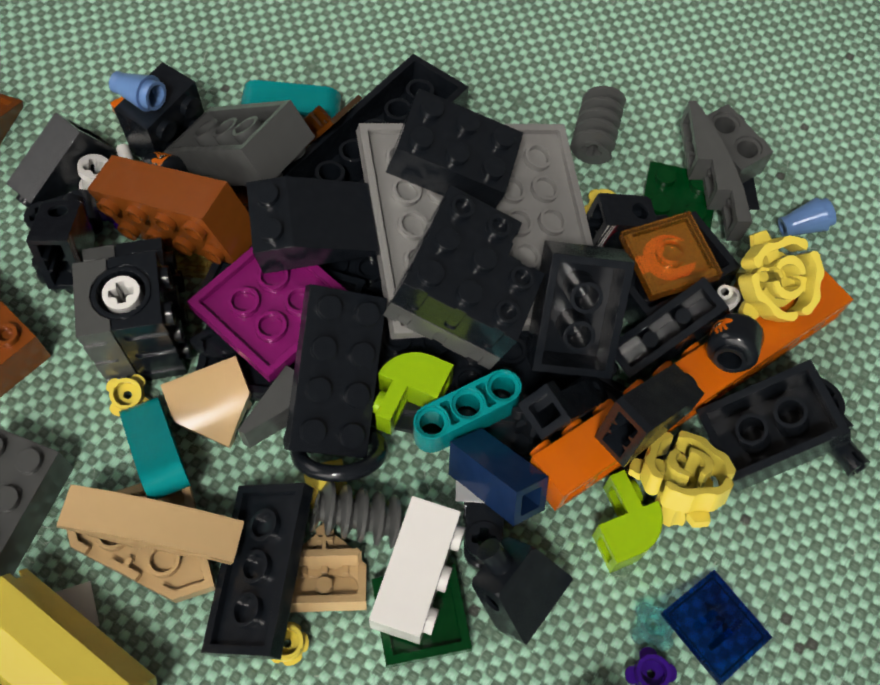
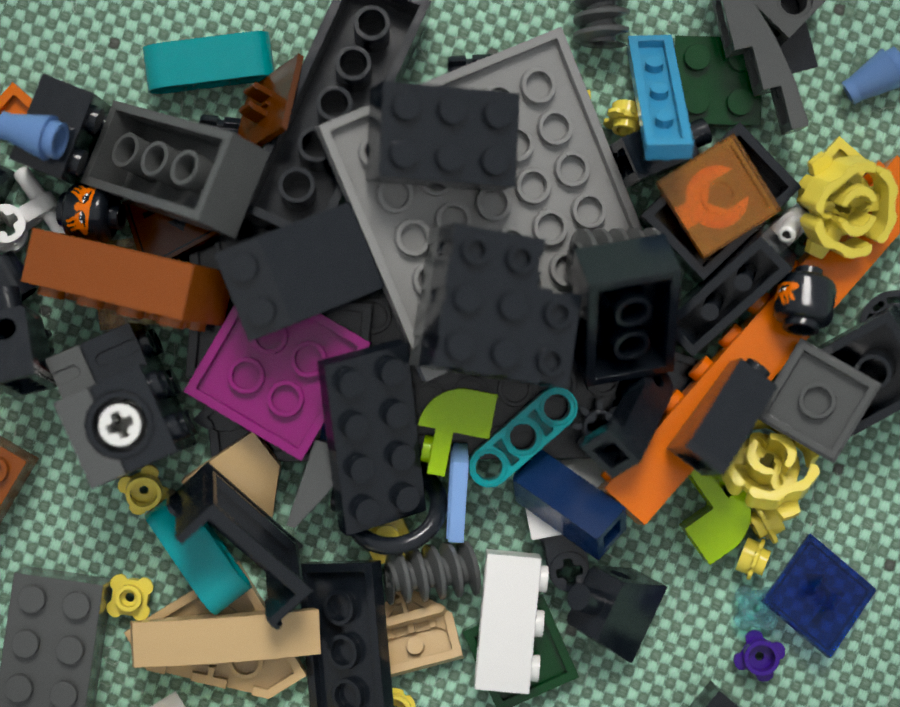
camera: 15 degrees left, 25 degrees up
(77, 470) = (139, 588): none -> light yellow plate
(197, 430) = (216, 500): none -> black piece
(397, 450) = (457, 492): none -> light blue tile
(633, 181) = (659, 98): none -> dark azure plate
(657, 575) = (753, 558): none -> light yellow plate
(674, 542) = (766, 524): none -> light yellow plate
(738, 426) = (818, 400): none -> dark grey tile

